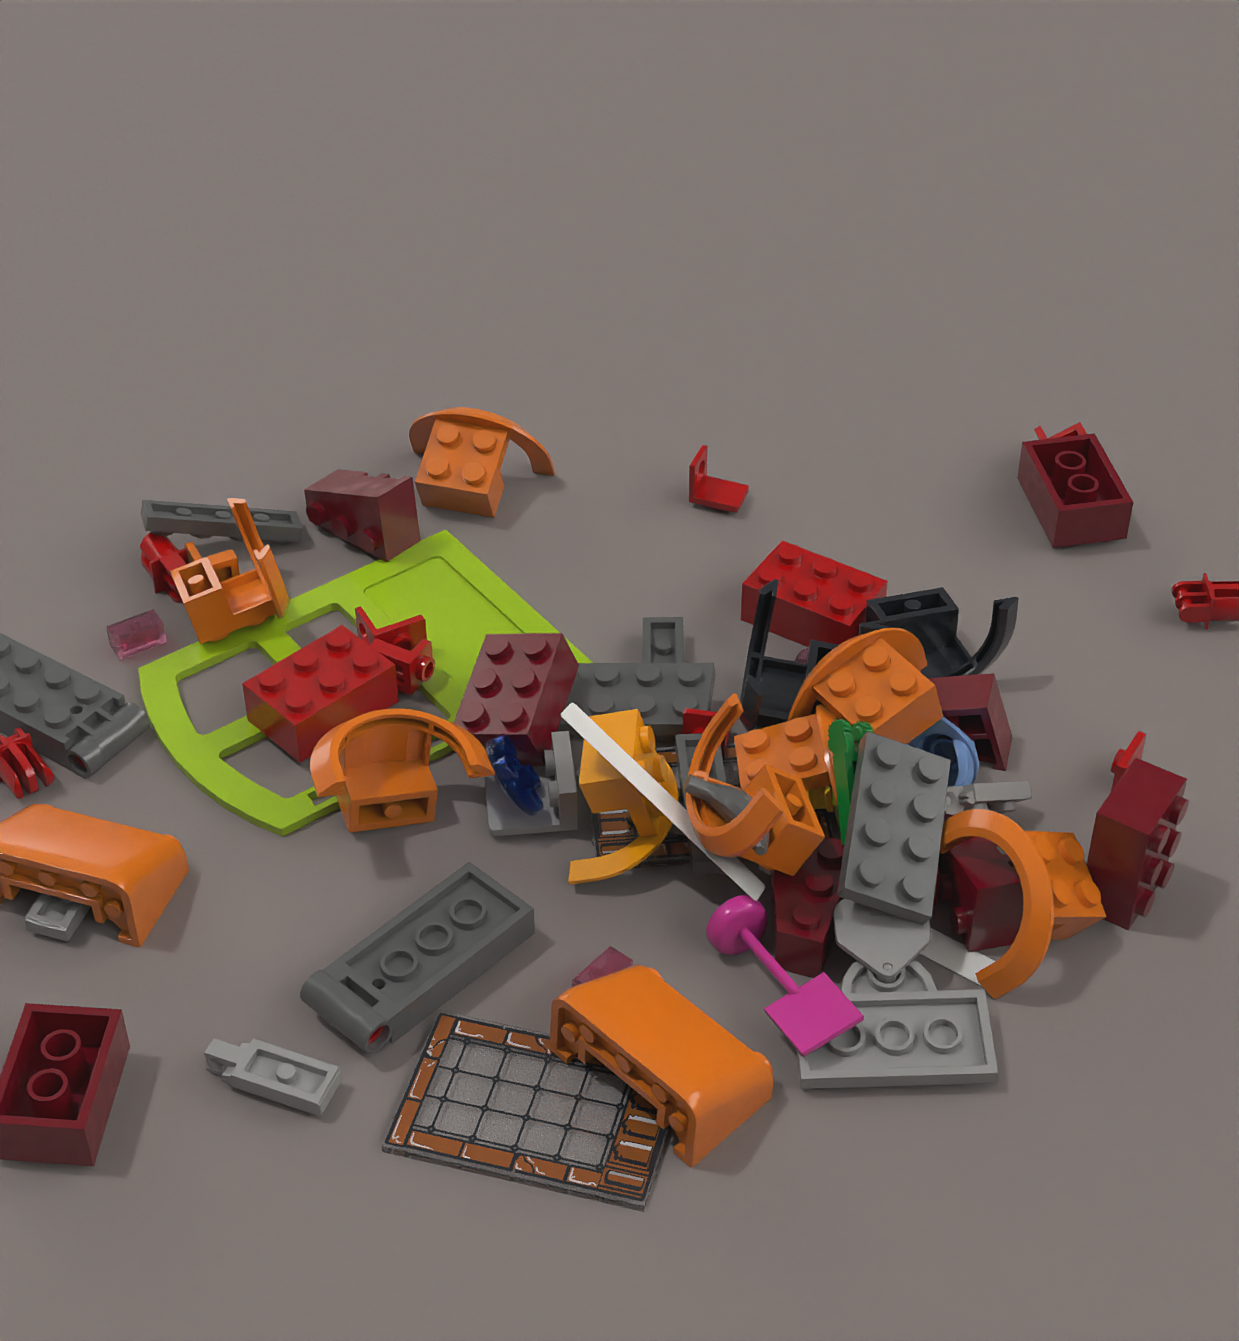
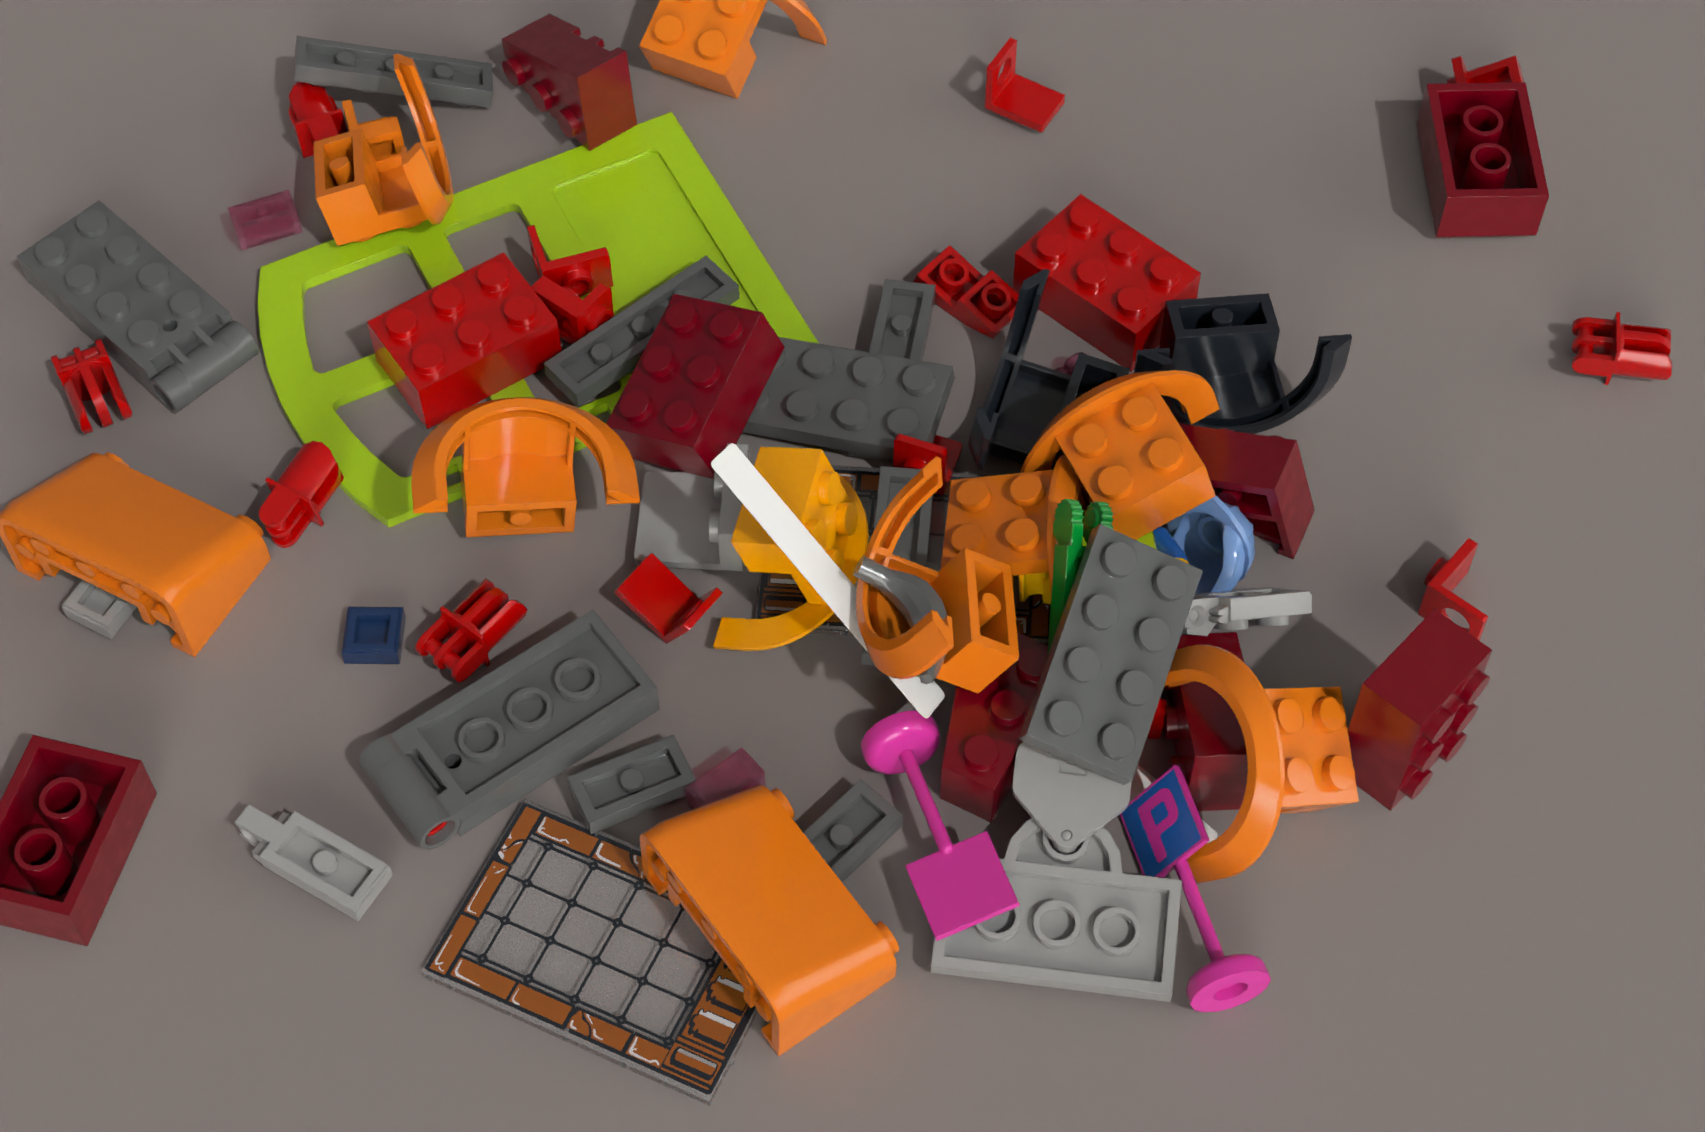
camera: 10 degrees right, 15 degrees up
(208, 815) = (300, 494): none -> red arm
(287, 911) = (373, 635): none -> dark blue tile
(369, 893) = (472, 627): none -> red arm
(448, 679) = (618, 344): none -> dark grey plate
(512, 778) = (670, 497): clear blue dish -> none
(520, 854) = (663, 599): none -> red bracket
(525, 985) = (631, 784): none -> dark grey plate
(717, 989) = (854, 829): none -> dark grey plate
(718, 628) = (967, 295): none -> red slope
(959, 961) = (1163, 834): none -> dark pink piece

